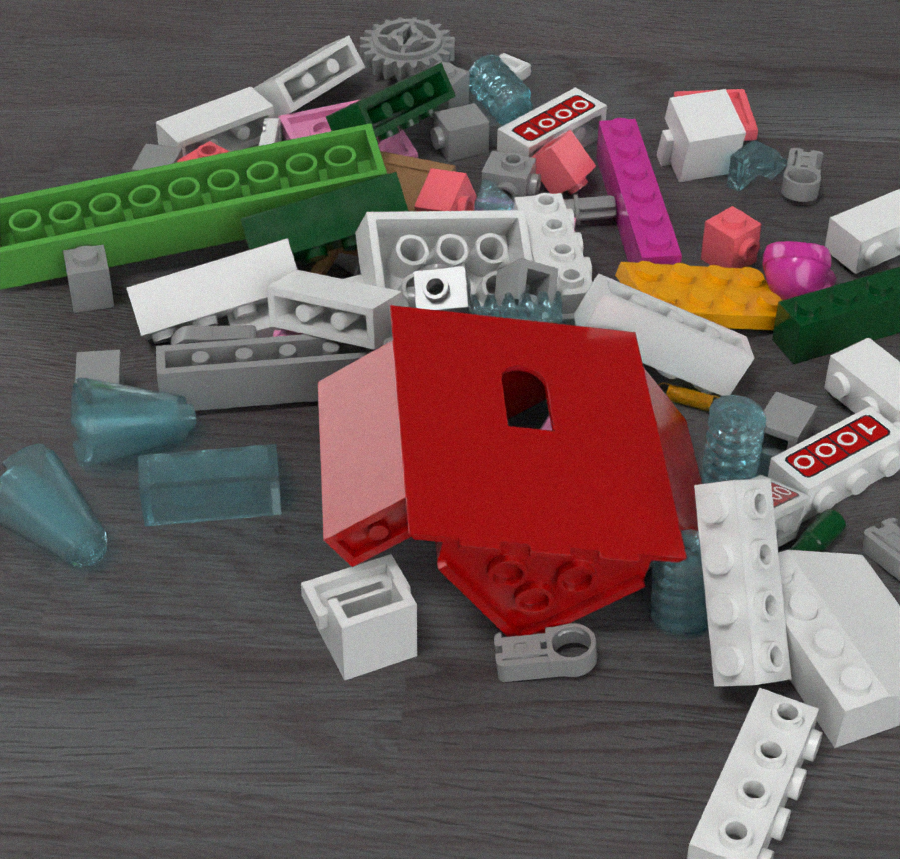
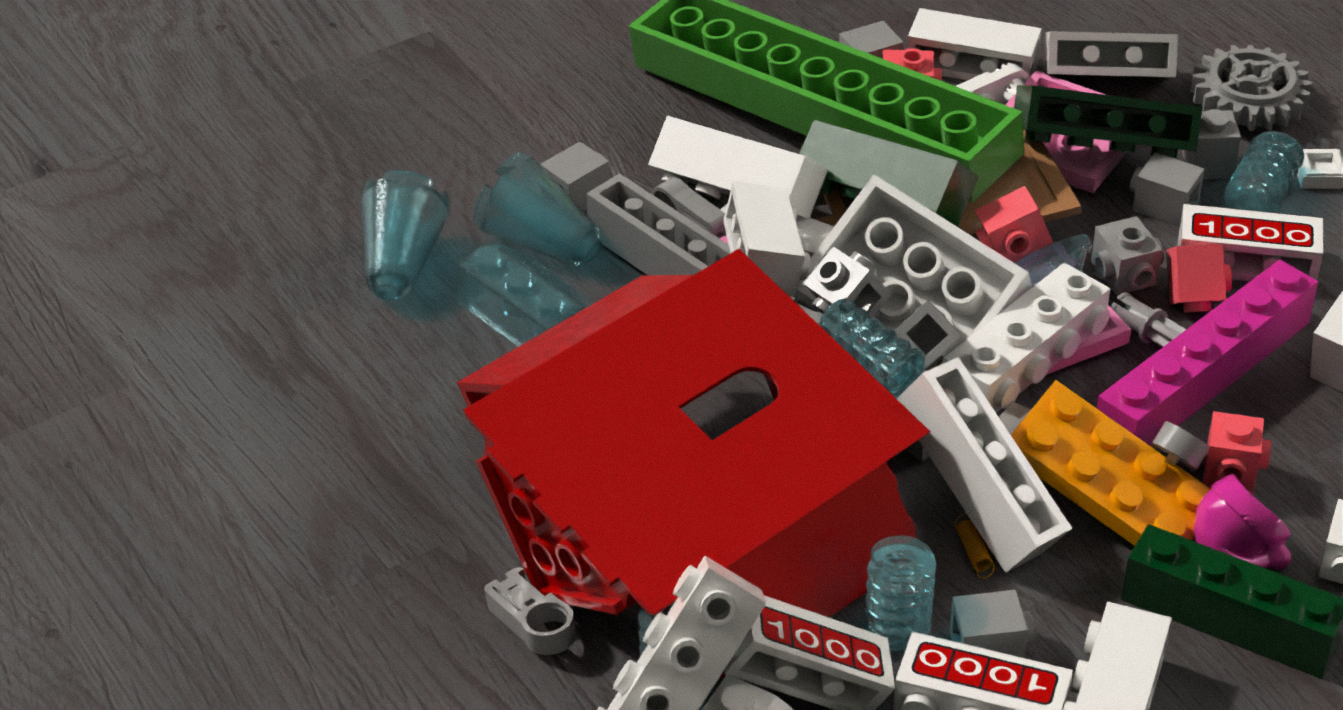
camera: 55 degrees right, 0 degrees up
(88, 278) = (688, 94): light grey brick -> none
(364, 615) = (441, 477): white plate -> none
(719, 250) = (1180, 447): none -> light grey piece

